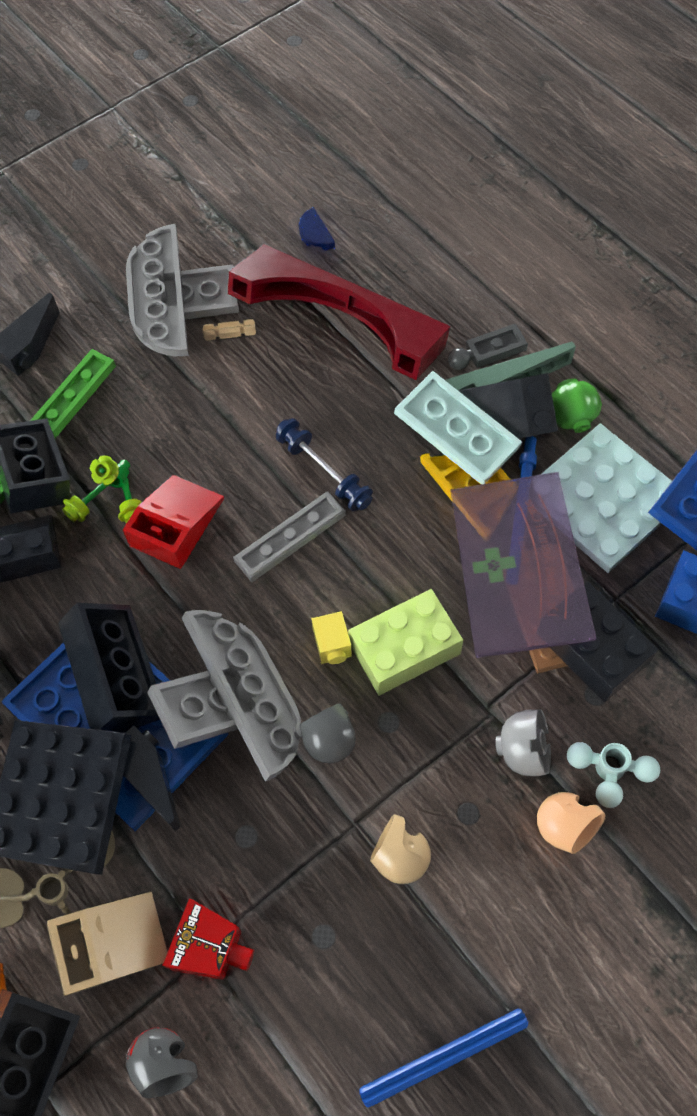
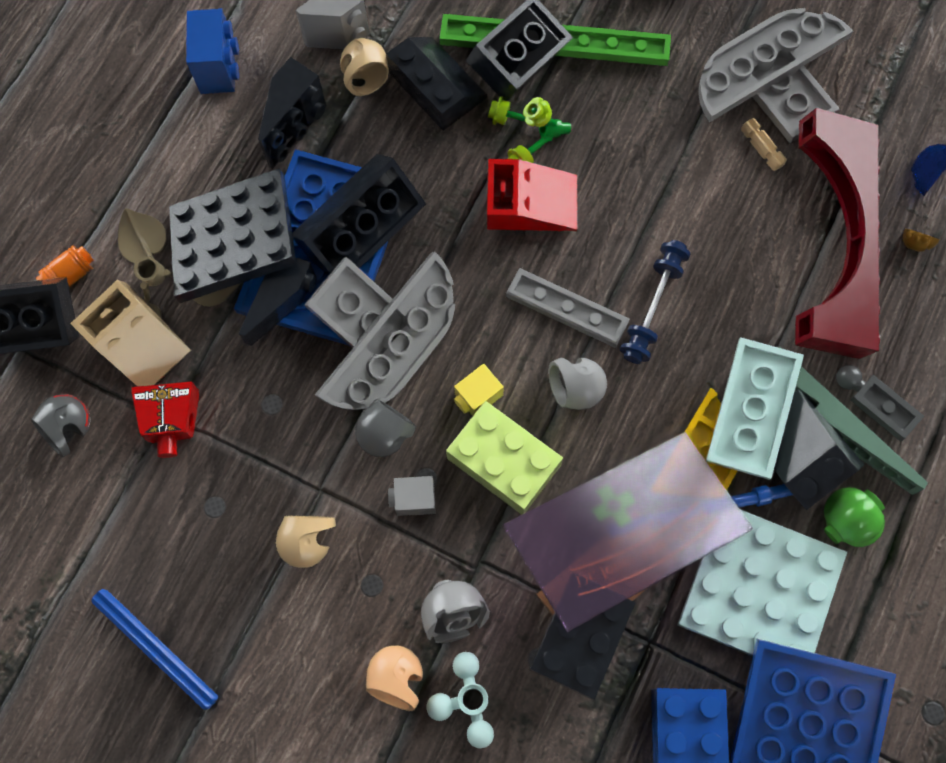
camera: 65 degrees right, 10 degrees up
(370, 546) = (583, 382): none -> light grey helmet
(371, 265) = (918, 241): none -> pearl gold animal
(403, 735) = (413, 496): none -> light grey brick

